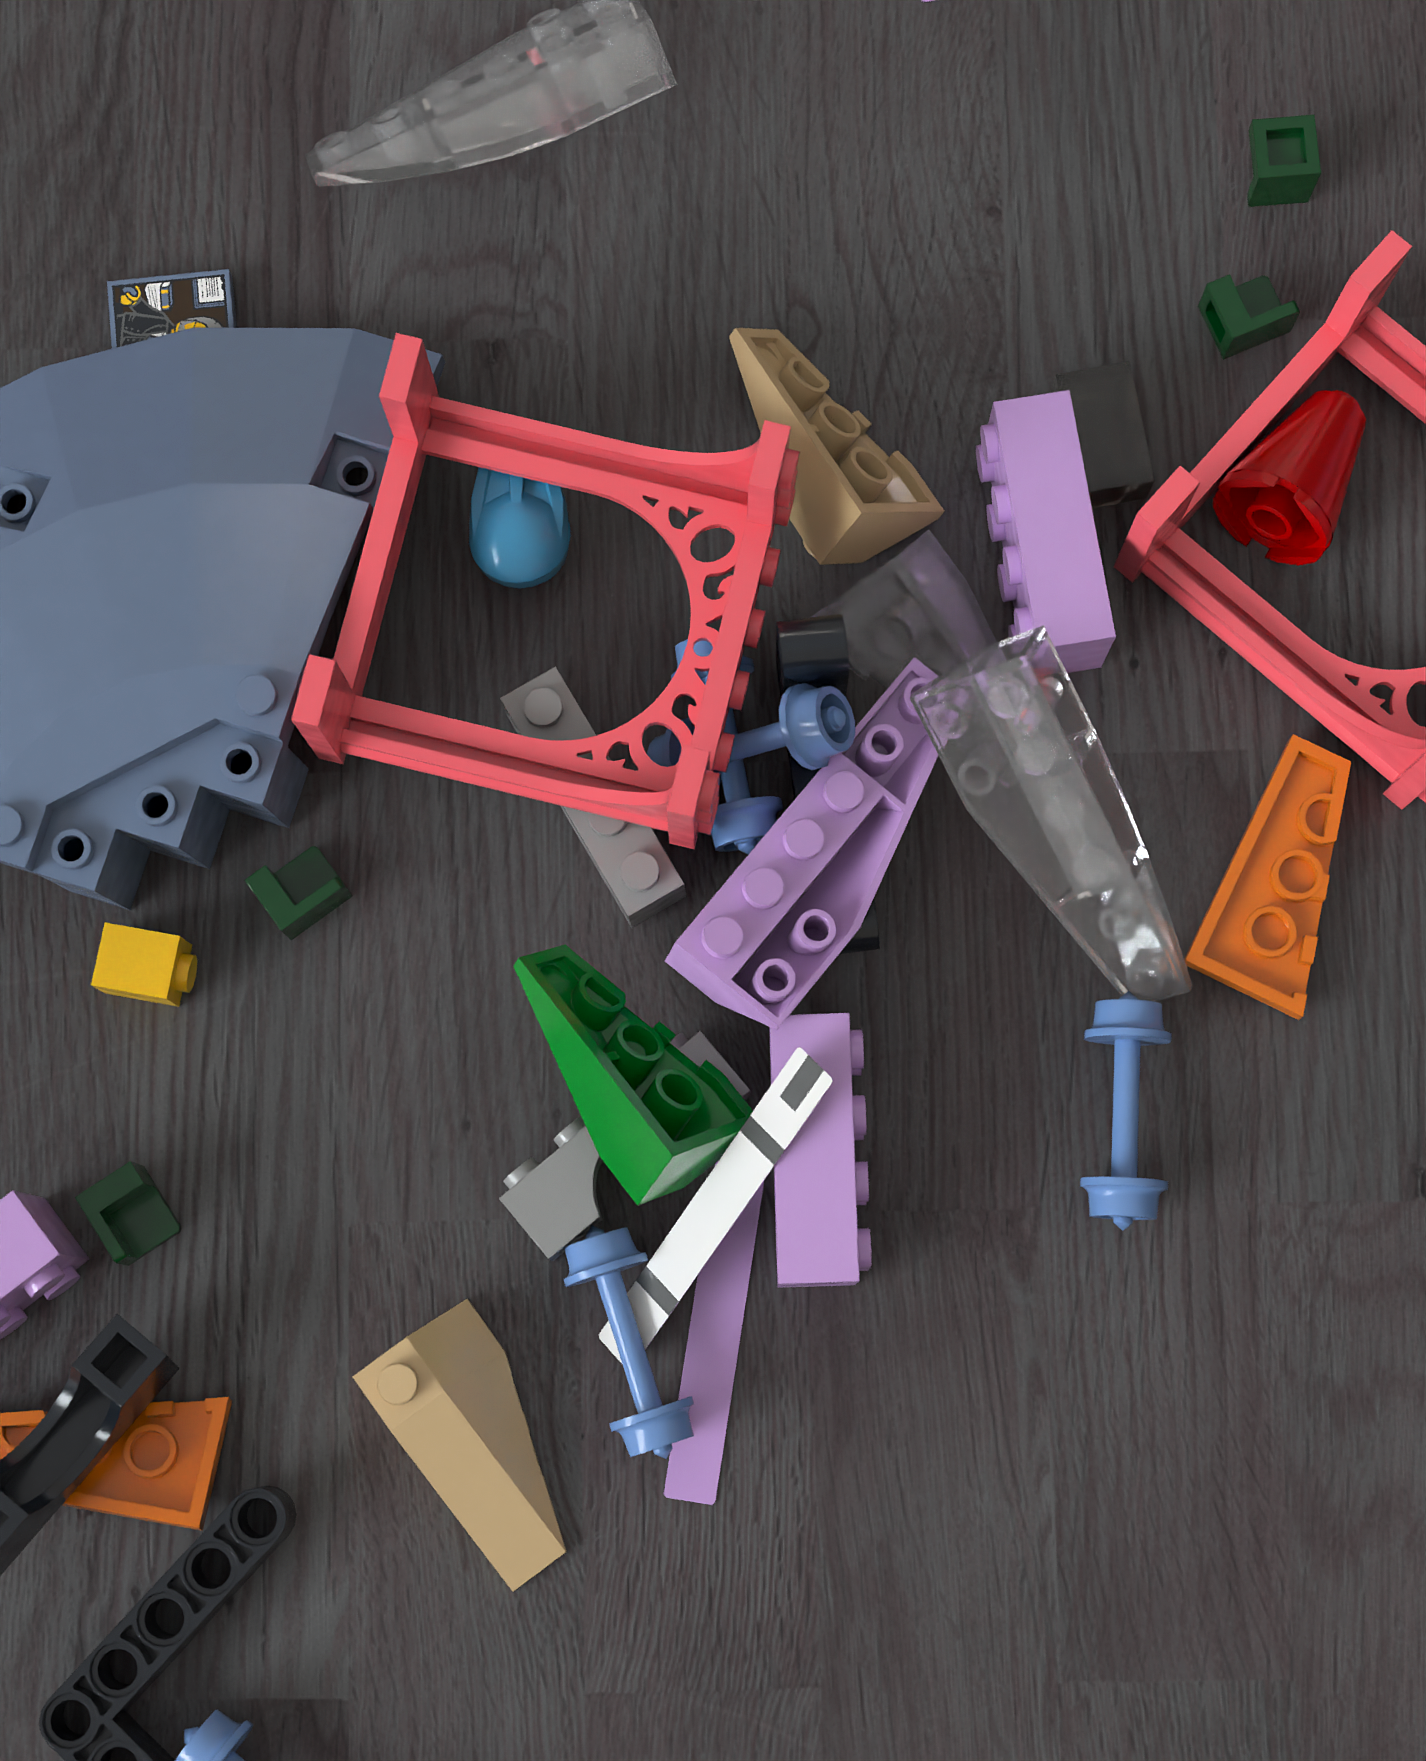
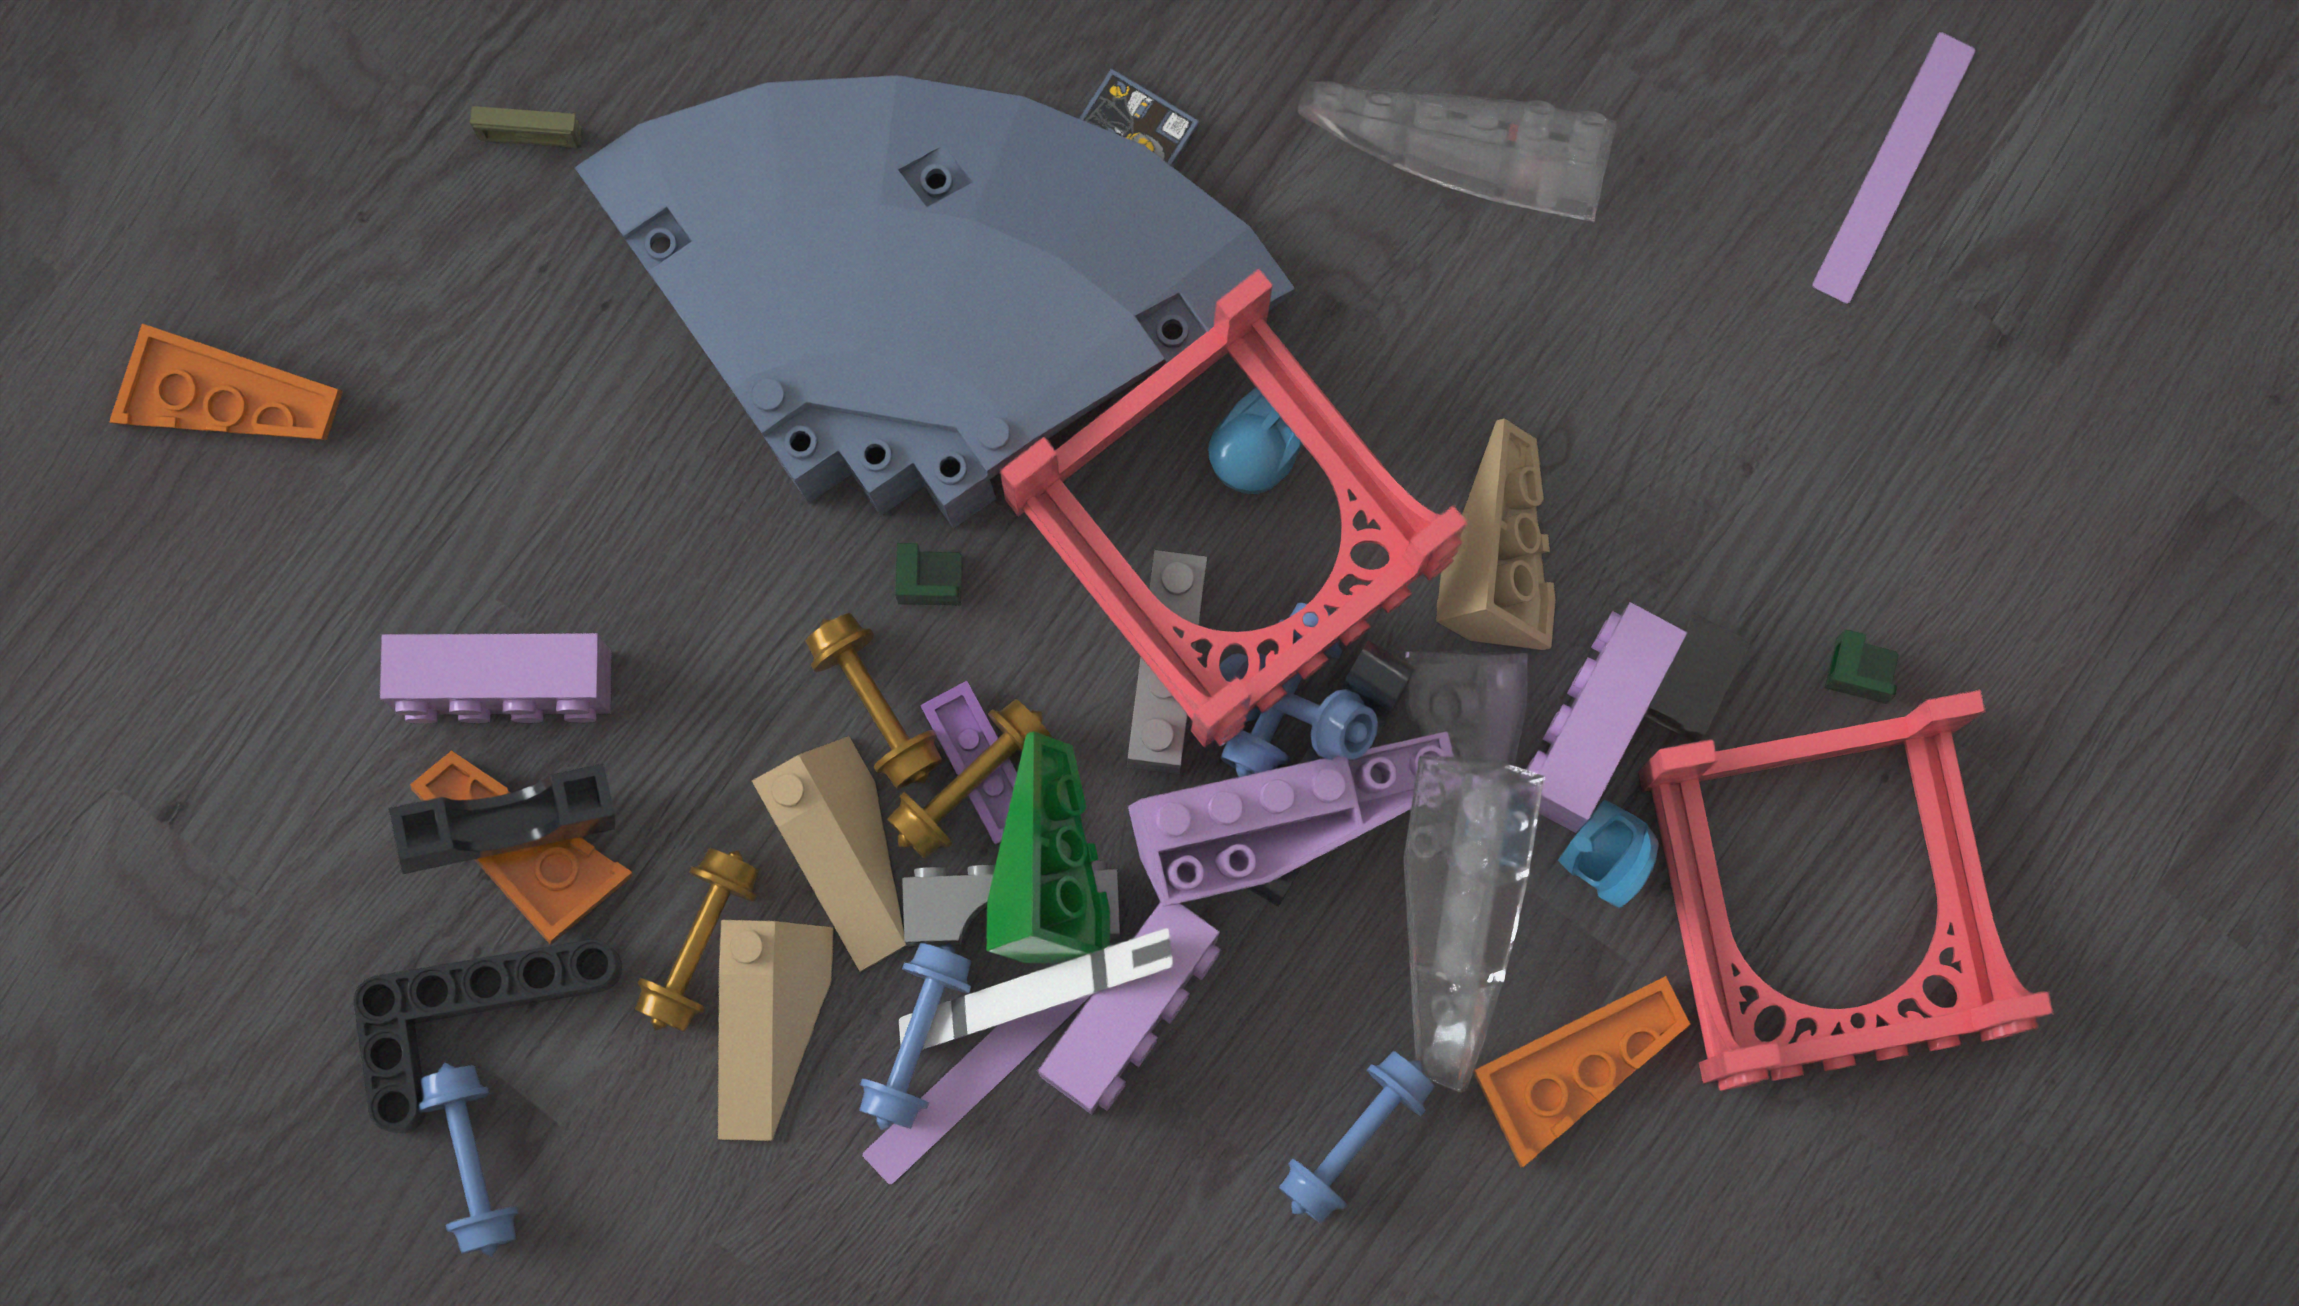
camera: 30 degrees right, 0 degrees up
(129, 1213) = (658, 704): dark green panel -> none
(144, 965) = (790, 548): yellow brick -> none
(262, 1020) = (838, 643): none -> pearl gold piece
(324, 1329) = (726, 875): none -> pearl gold piece
(398, 1204) = (837, 835): none -> tan wedge
(477, 1027) = (964, 737): none -> medium lavender plate
(477, 1136) = (919, 826): none -> pearl gold piece
(1160, 656) = (1612, 853): none -> dark azure helmet
(1283, 160) = (1967, 583): dark green panel -> none
(1295, 480) = (1804, 806): red cone -> none

